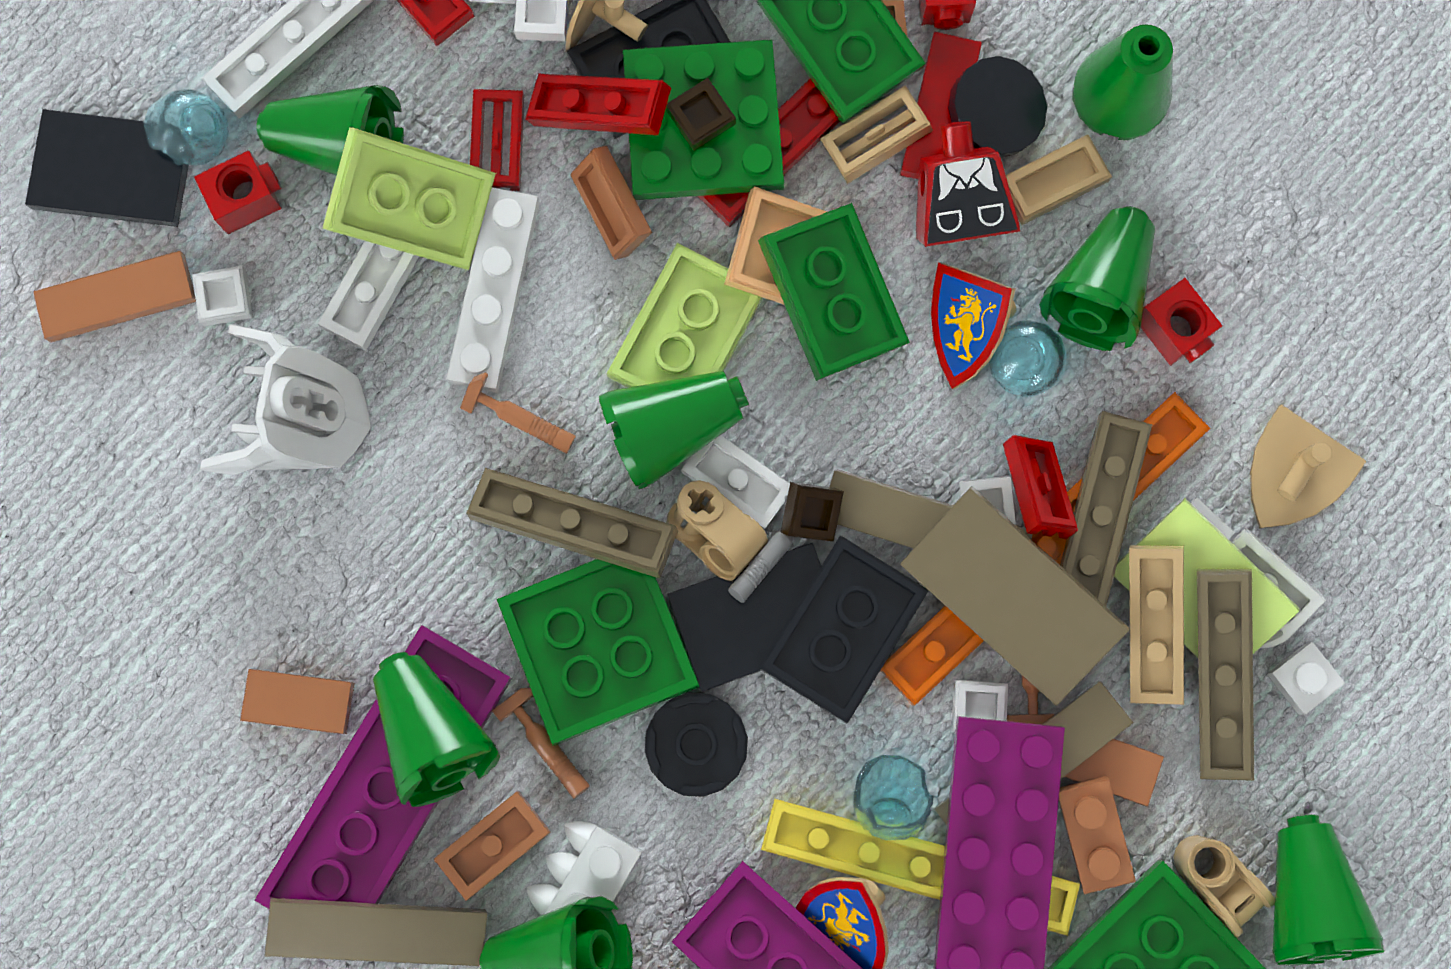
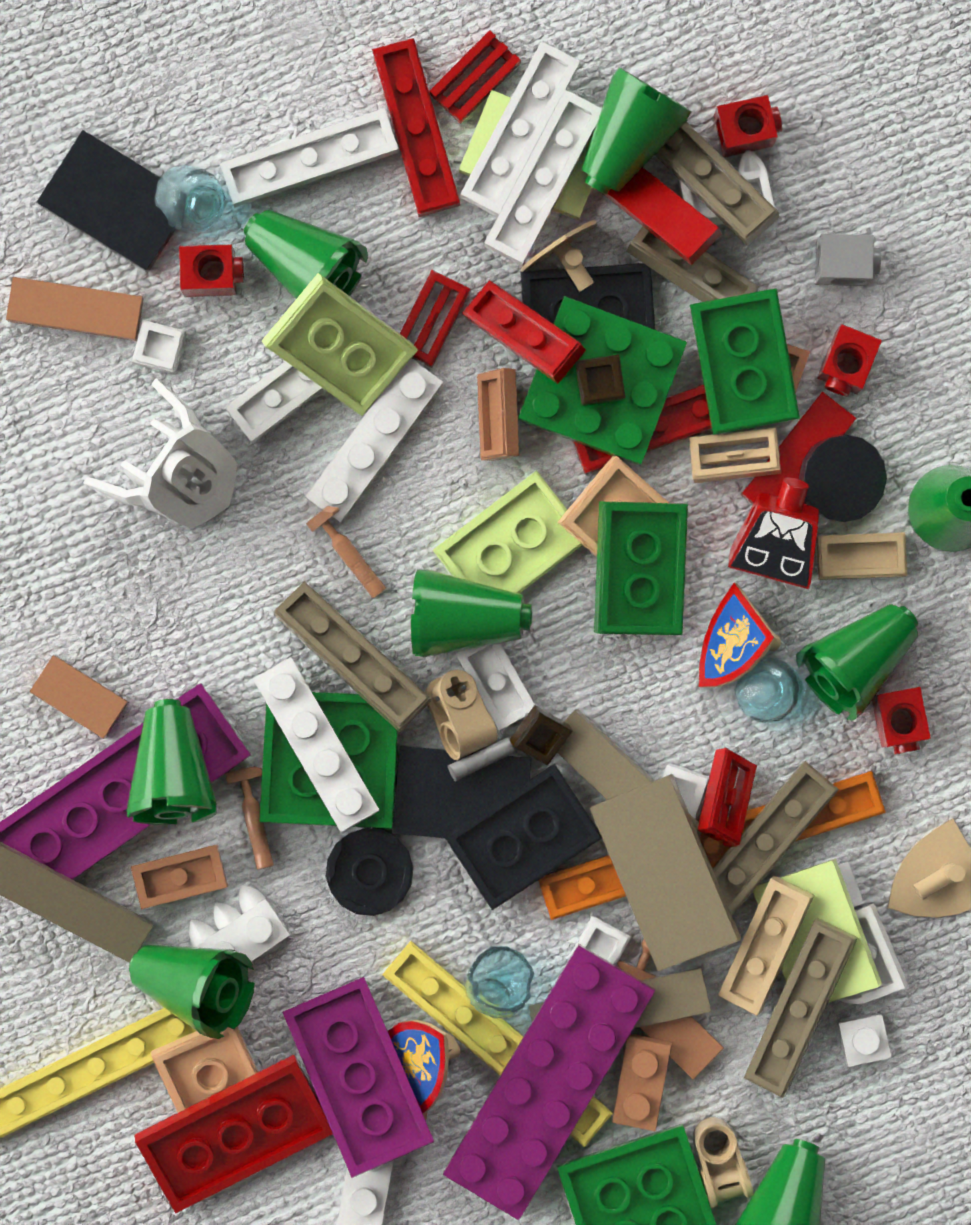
camera: 20 degrees right, 5 degrees up
(576, 632) = (316, 744): none -> white plate

